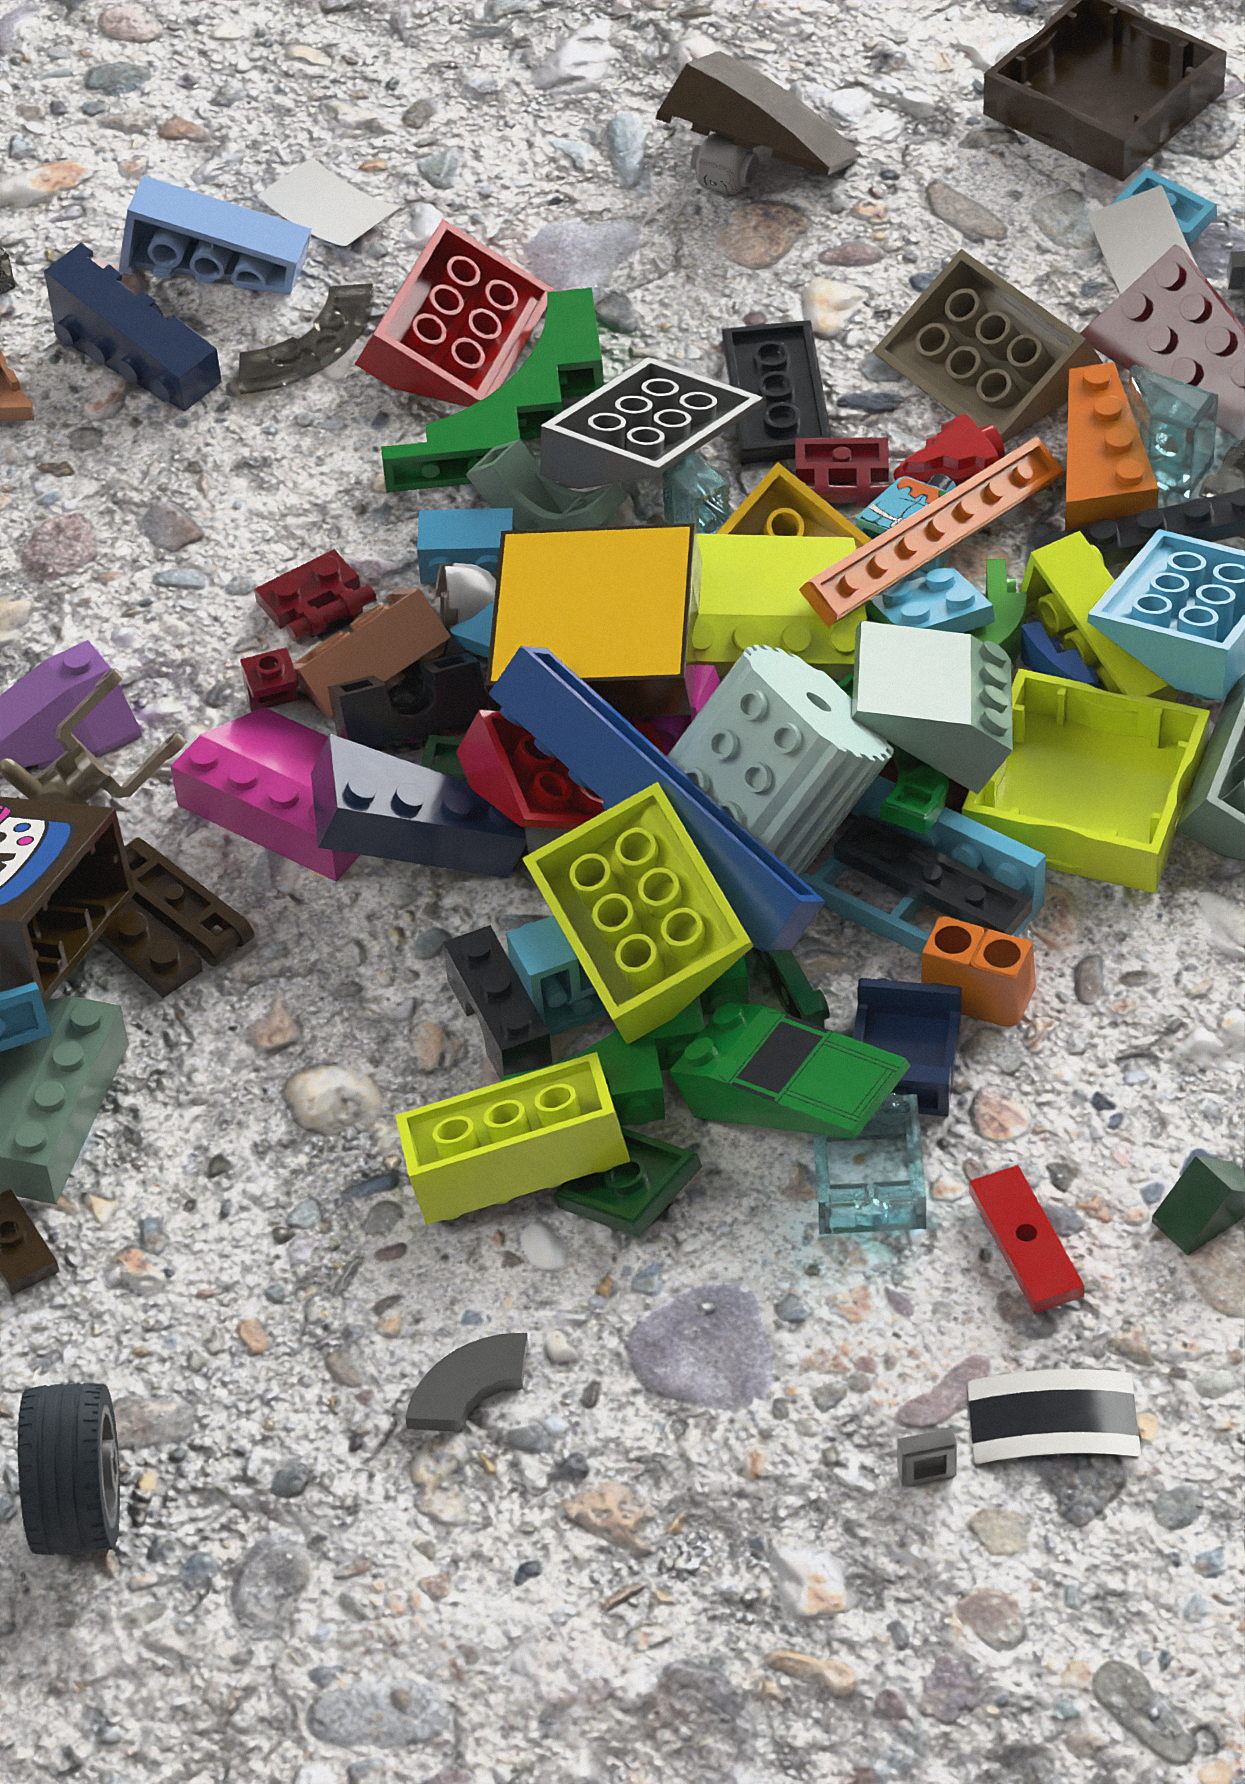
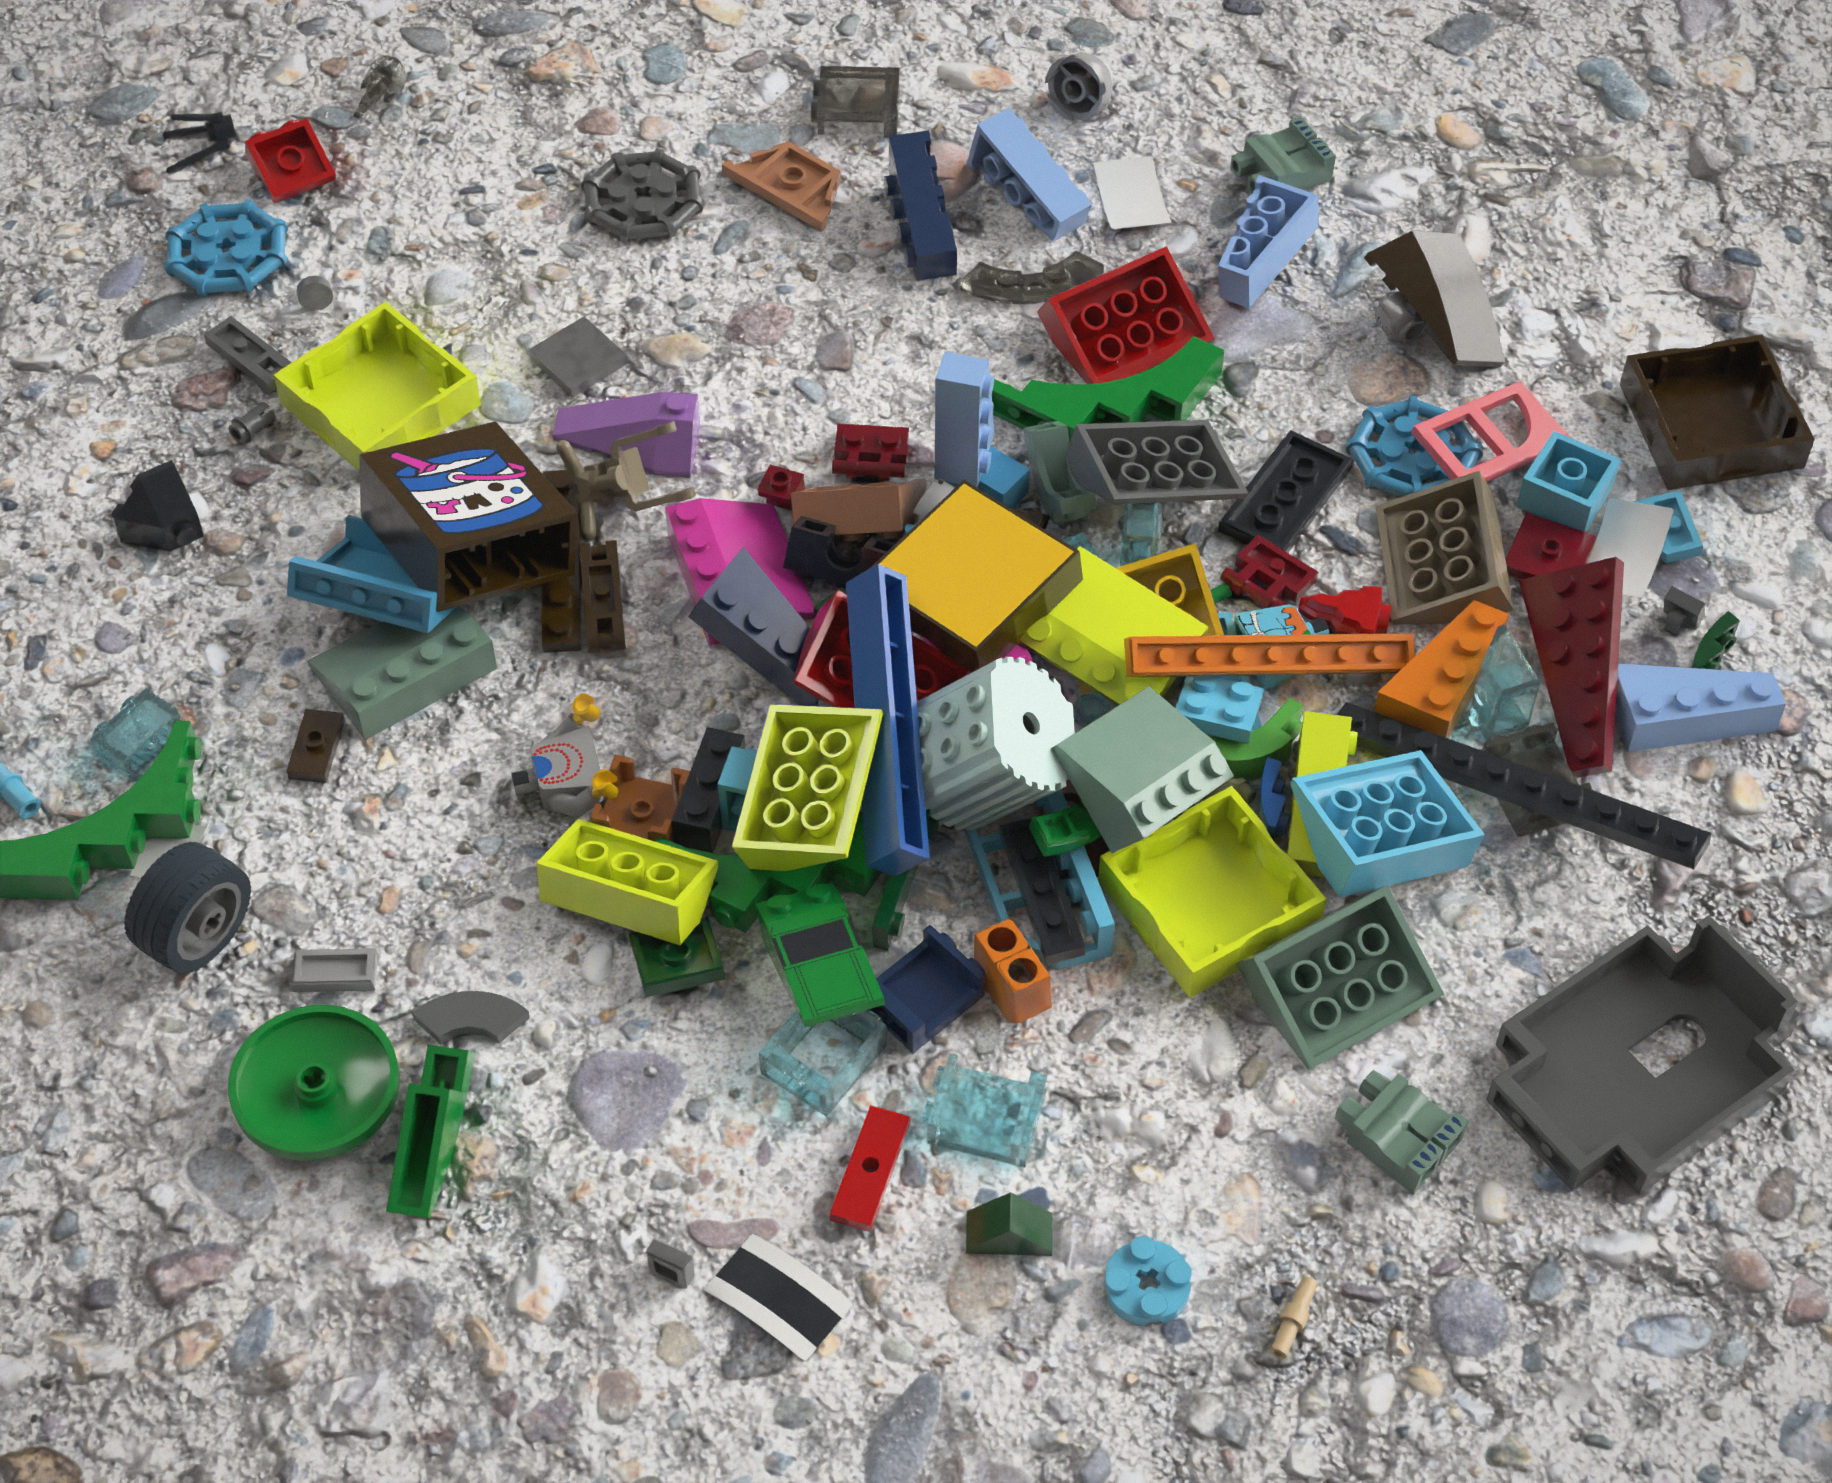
camera: 35 degrees right, 5 degrees up
(175, 127) = (1078, 86): none -> light grey cylinder
(271, 1438) = (335, 970): none -> light grey tile
(326, 1082) = (568, 766): none -> light grey torso
(381, 1547) = (314, 1082): none -> green dish
(433, 479) = (963, 418): none -> light blue wedge
(439, 1063) = (642, 804): none -> dark orange panel
(459, 85) = (1287, 156): none -> sand green hips
(517, 159) = (1266, 239): none -> light blue wedge
(553, 1506) = (430, 1130): none -> green slope
(864, 305) = (1402, 471): none -> dark azure plate
(965, 197) = (1539, 429): none -> coral window
(1041, 220) = (1568, 482): none -> medium azure brick
(1074, 290) = (1547, 547): none -> dark red plate
(1083, 1115) = (984, 1113): none -> clear light blue panel

